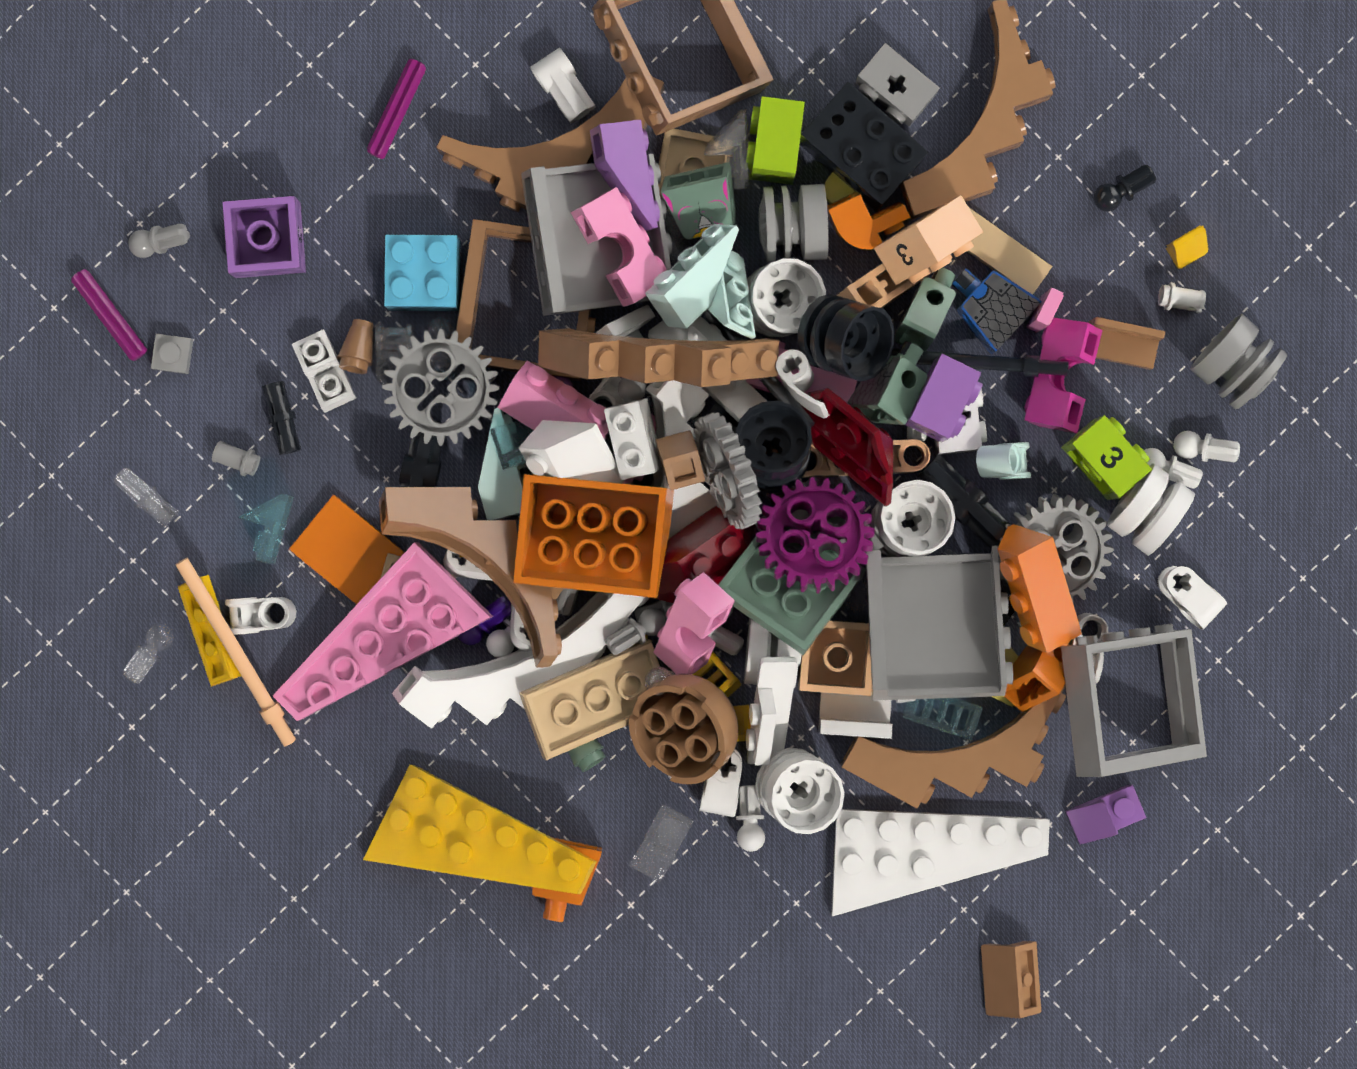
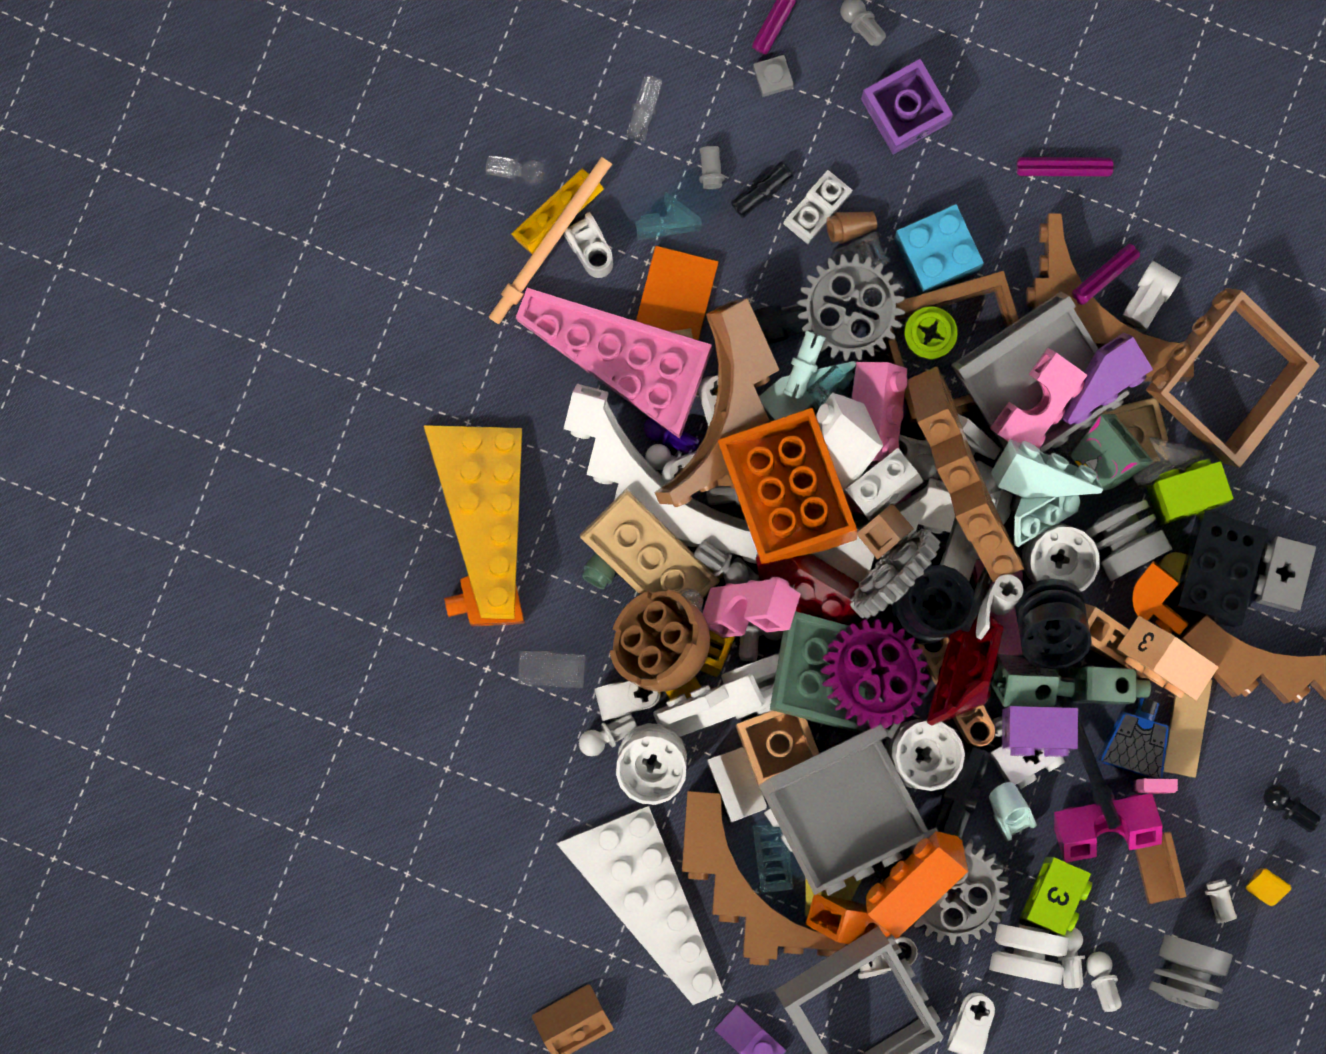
camera: 65 degrees right, 5 degrees down
(477, 460) = (804, 365): none -> light aqua pin
(485, 318) = (945, 329): none -> lime gear
(522, 120) = (1105, 274): none -> magenta axle

